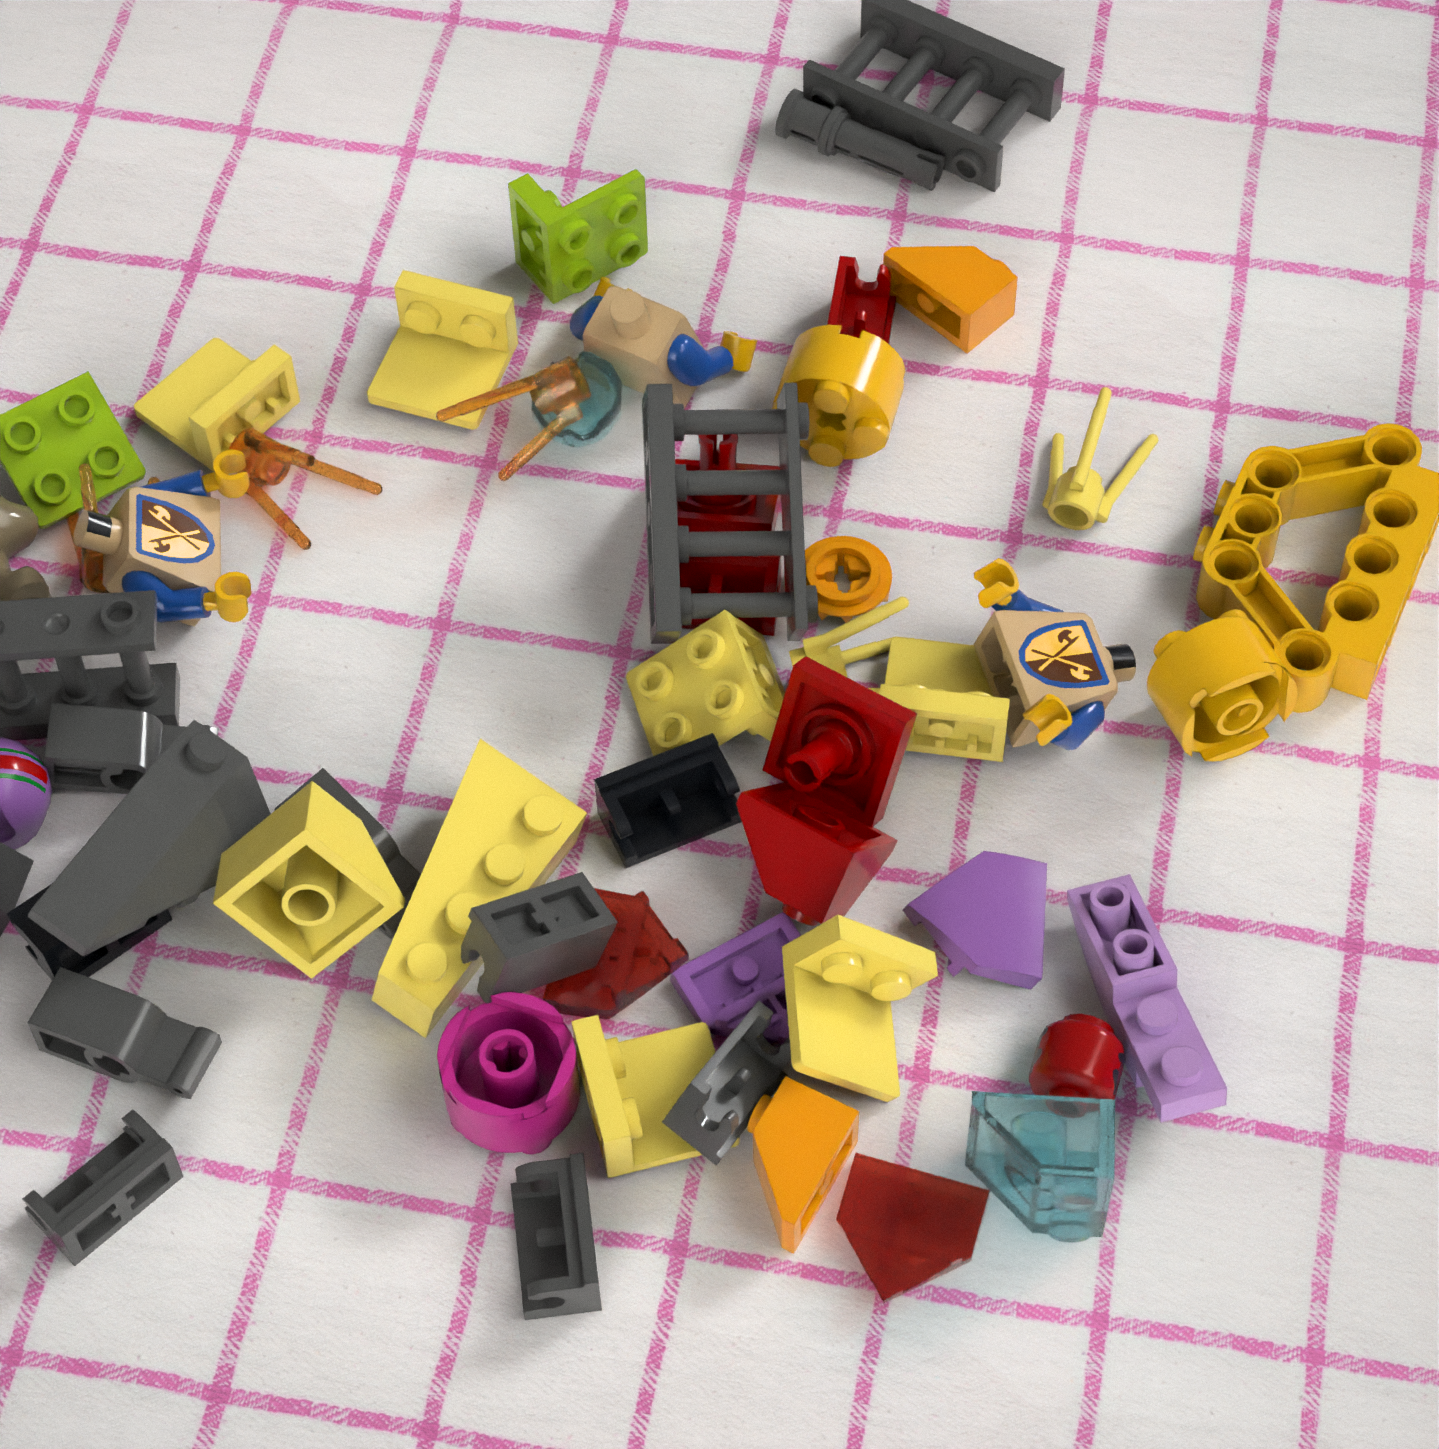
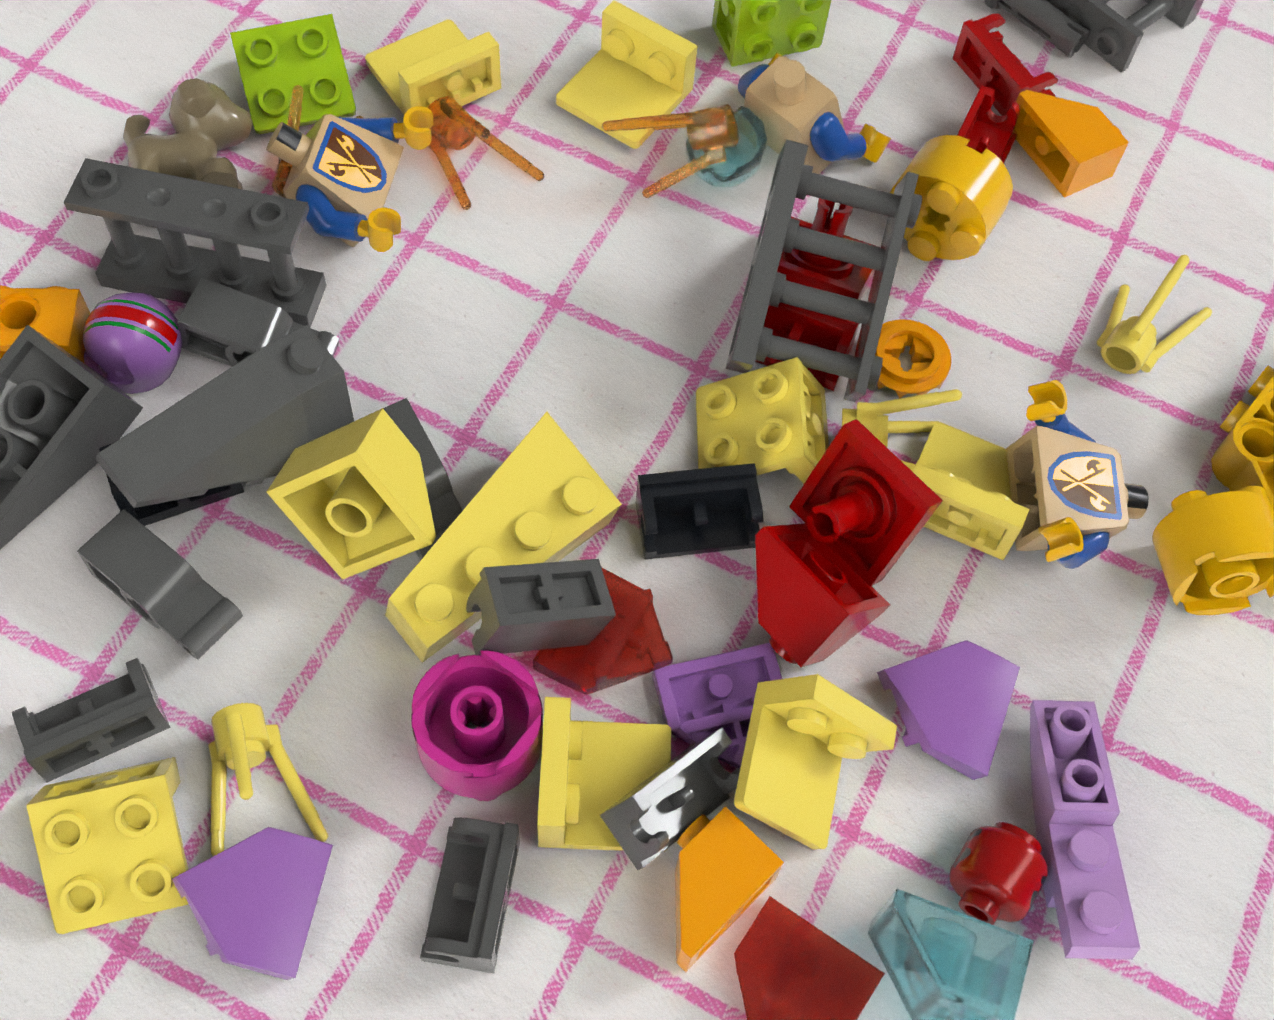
camera: 10 degrees right, 5 degrees up
(175, 1299) = (109, 845): none -> light yellow bracket
(272, 1165) = (241, 745): none -> light yellow plant
(342, 1305) = (258, 899): none -> medium lavender slope
(851, 224) = (993, 65): none -> red hinge

